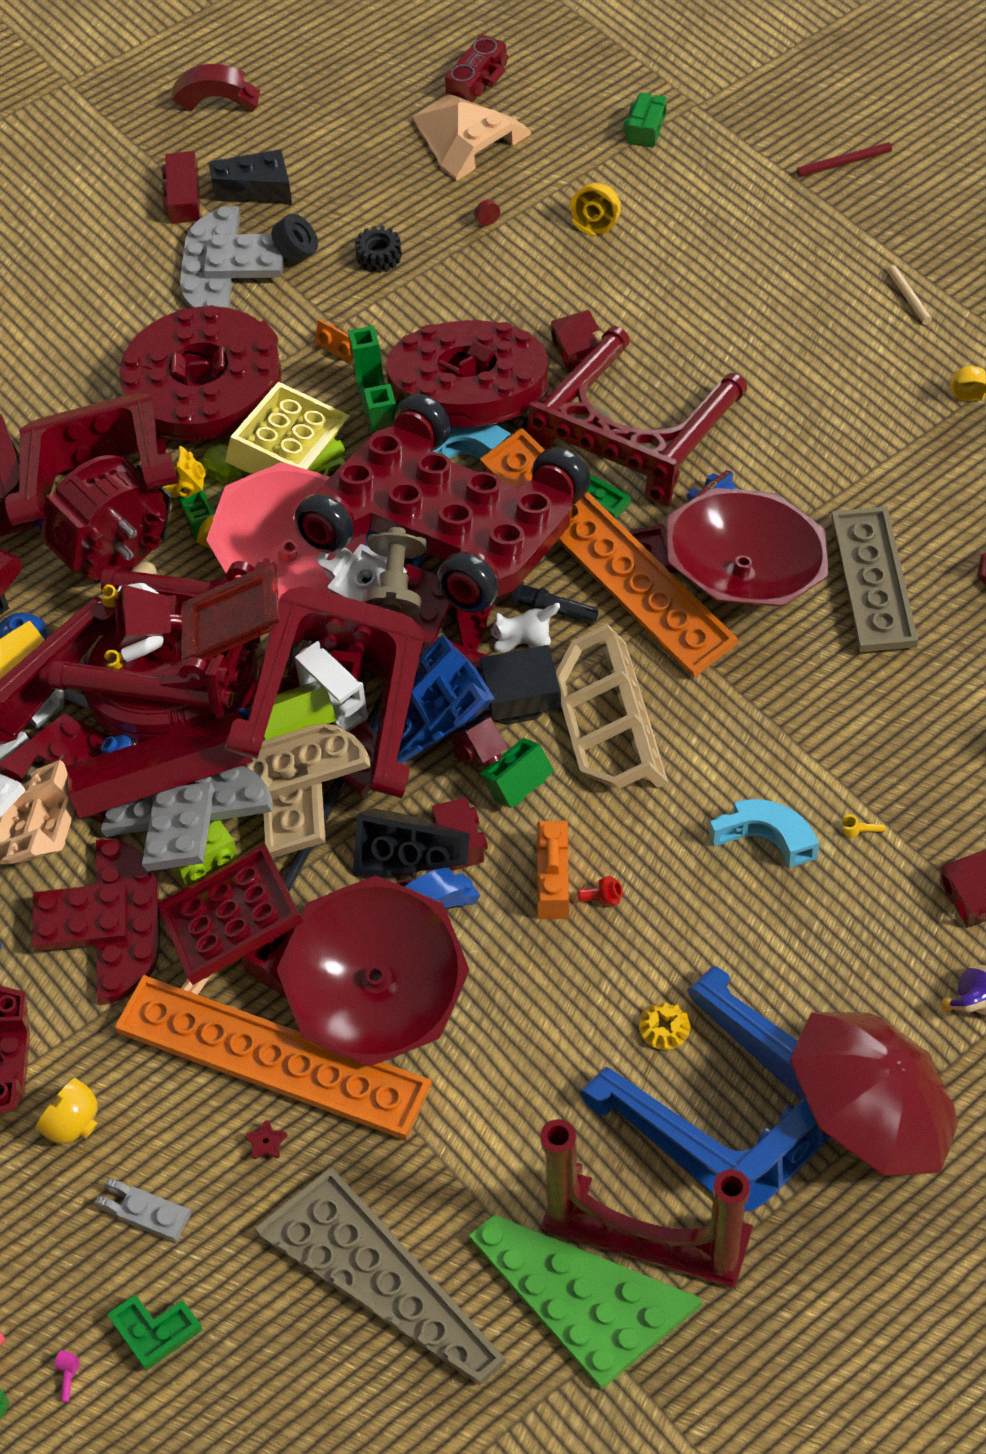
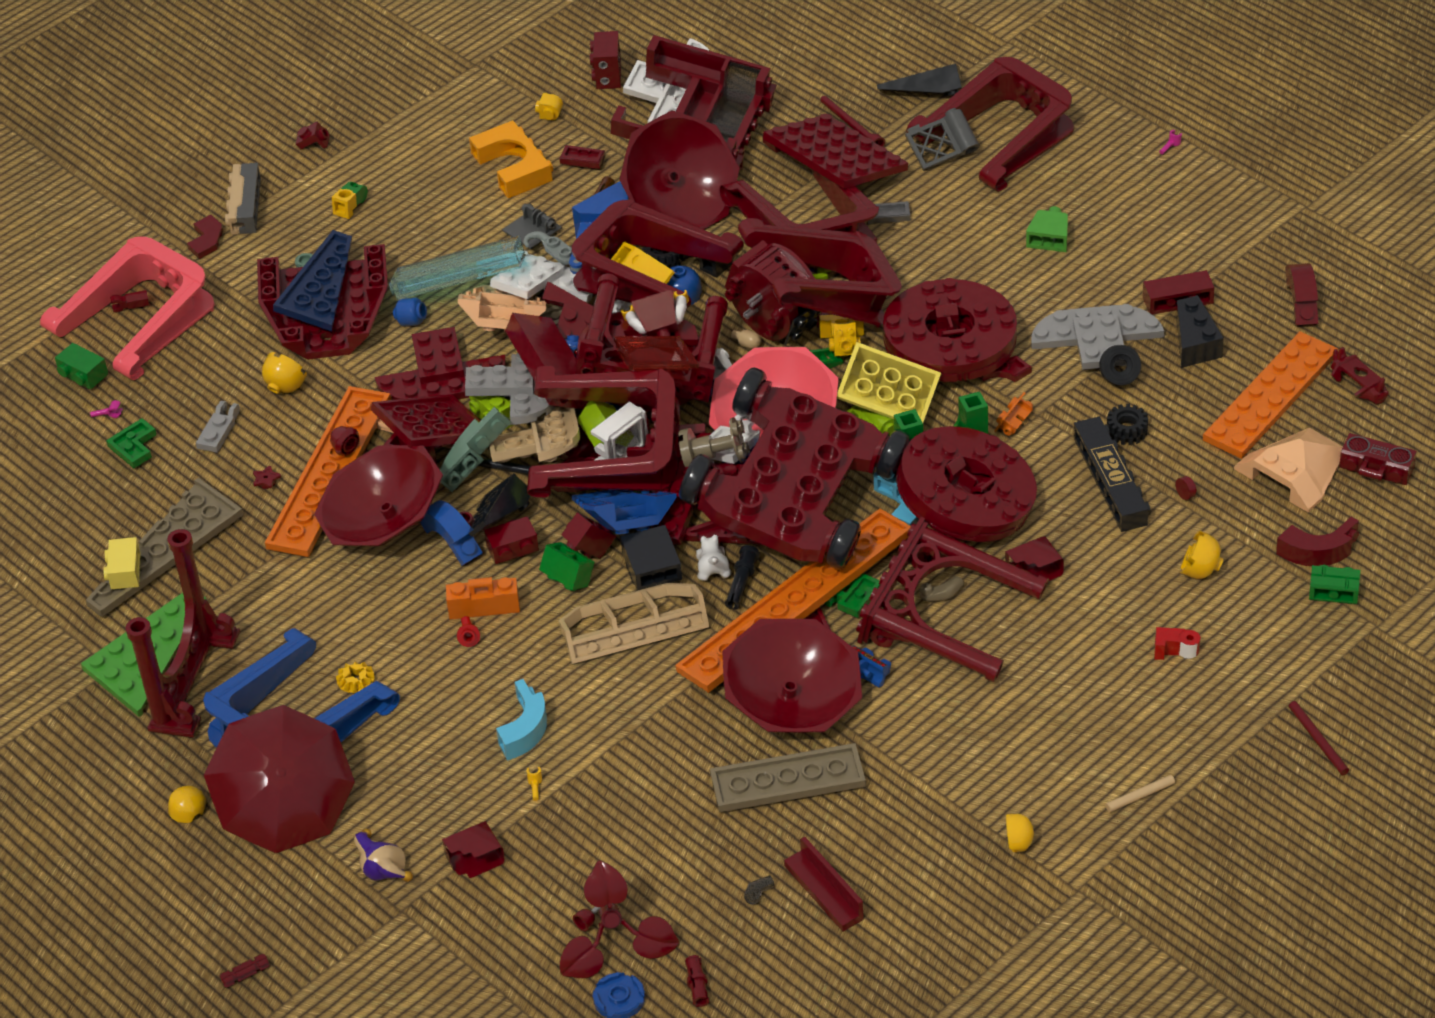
camera: 85 degrees right, 10 degrees down
(43, 281) = (1048, 230): none -> bright green torso
(238, 1023) = (344, 440): none -> dark red cone
(302, 875) = (467, 450): none -> sand green slope
(333, 73) = (1372, 385): none -> dark red piece
(356, 139) = (1270, 395): none -> orange plate
(428, 1319) = (122, 563): none -> light yellow brick
(453, 268) = (1111, 474): none -> black brick
(592, 135) = (1318, 549): none -> dark red arch
(709, 246) = (1176, 642): none -> red leg
(875, 1231) = (186, 803): none -> yellow hair

